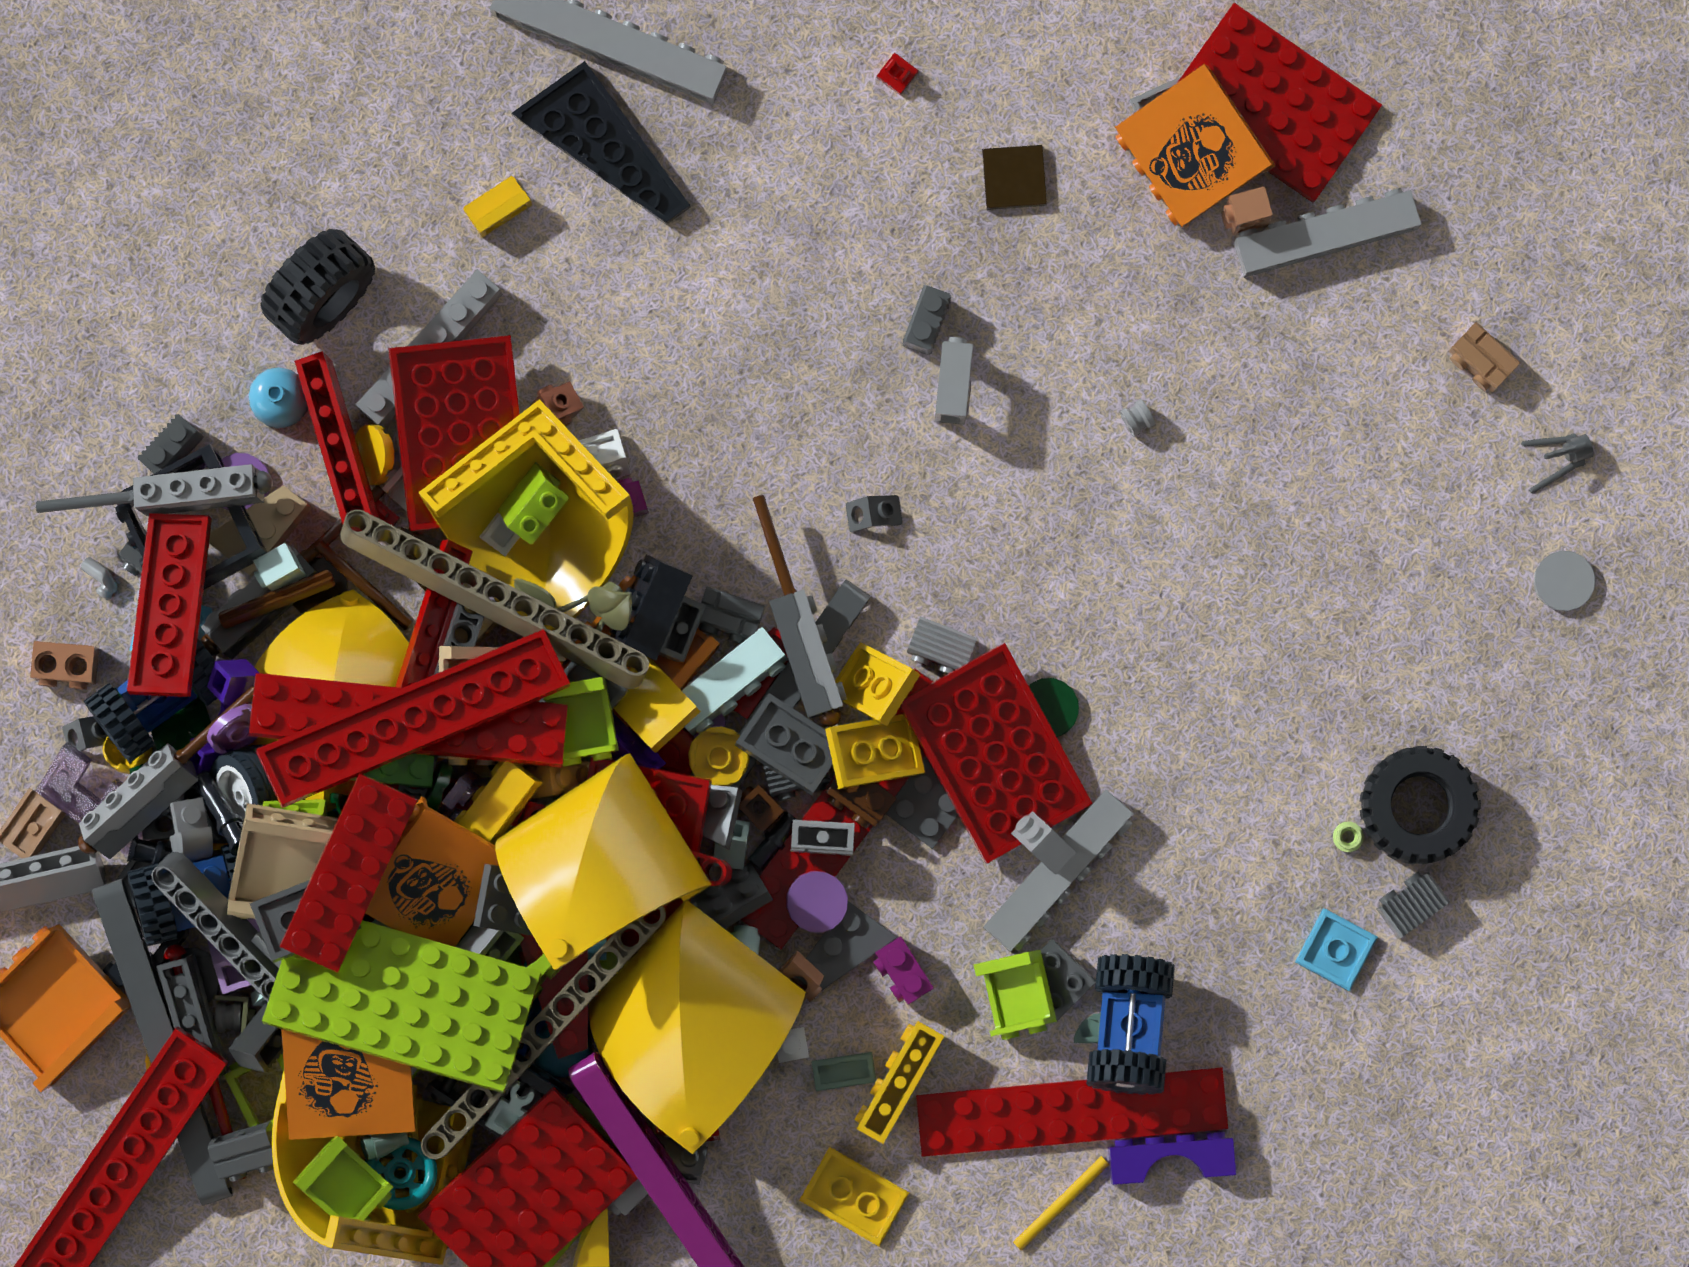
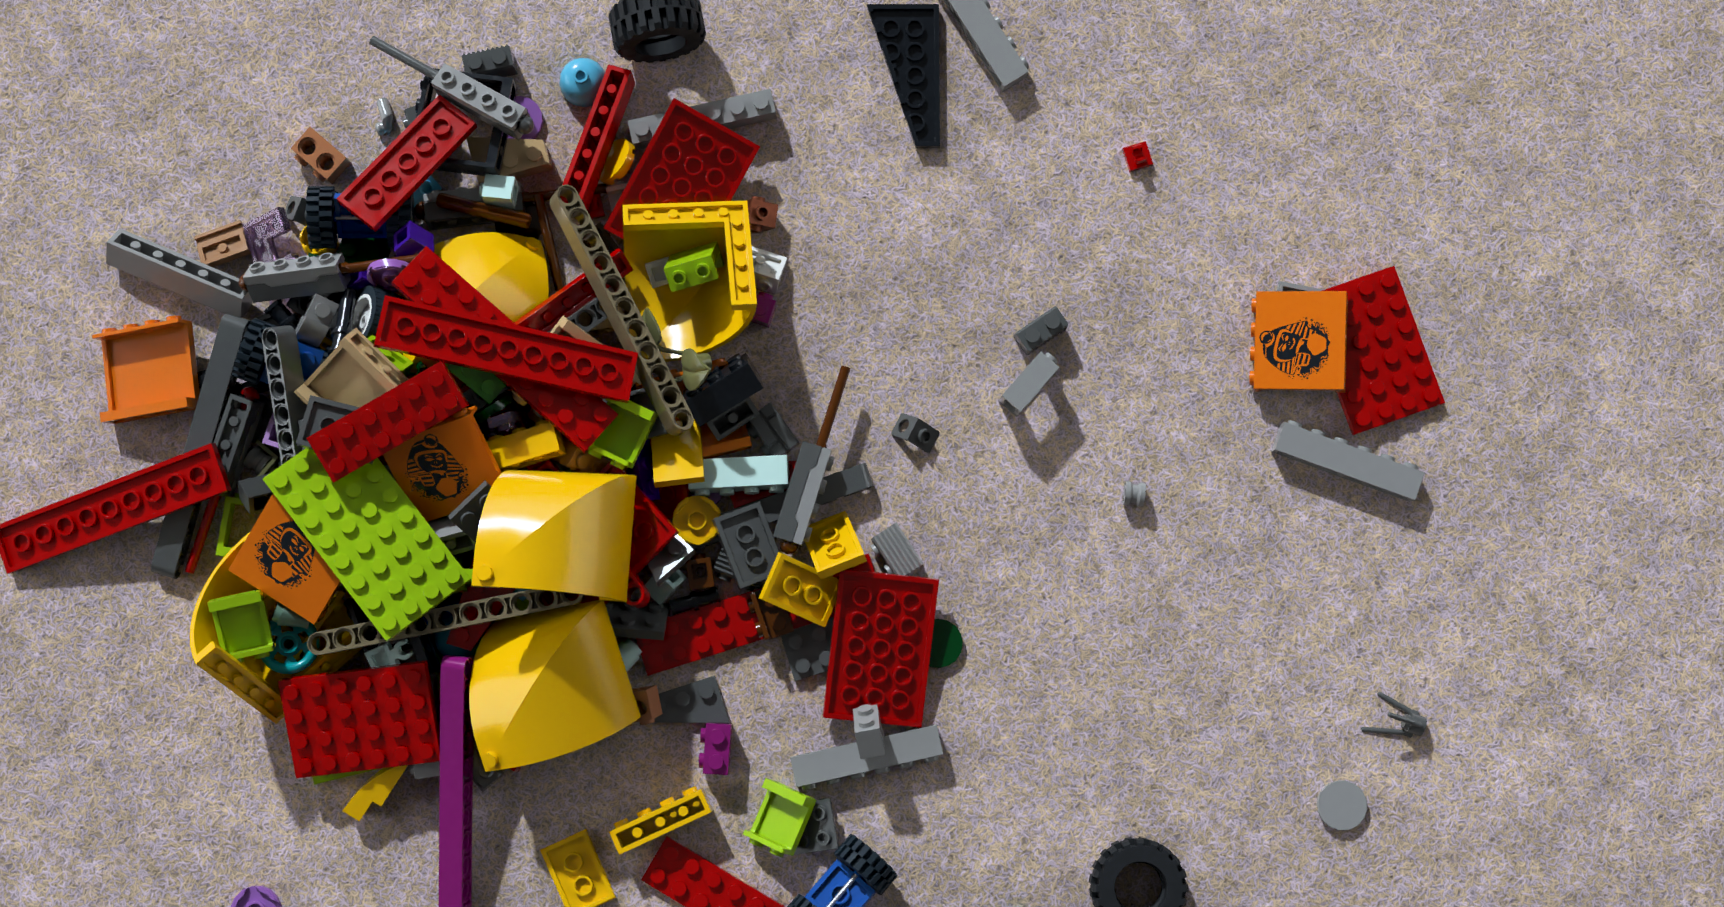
camera: 30 degrees right, 0 degrees up
(242, 1152) = (197, 554): dark grey brick -> none
(497, 206) = (814, 59): yellow panel -> none
(794, 1046) = (610, 746): white plate -> none
(816, 901) = (692, 661): medium lavender tile -> none
(822, 837) = (726, 622): light grey brick -> none
(843, 1071) = (630, 786): sand green tile -> none
(1014, 177) = (1166, 278): dark brown tile -> none
(1088, 1030) = (811, 875): sand green tile -> none
(1247, 211) = (1305, 409): nougat brick -> none
(1355, 830) = (1075, 880): yellowish green plate -> none
(1483, 358) = (1393, 618): medium nougat brick -> none

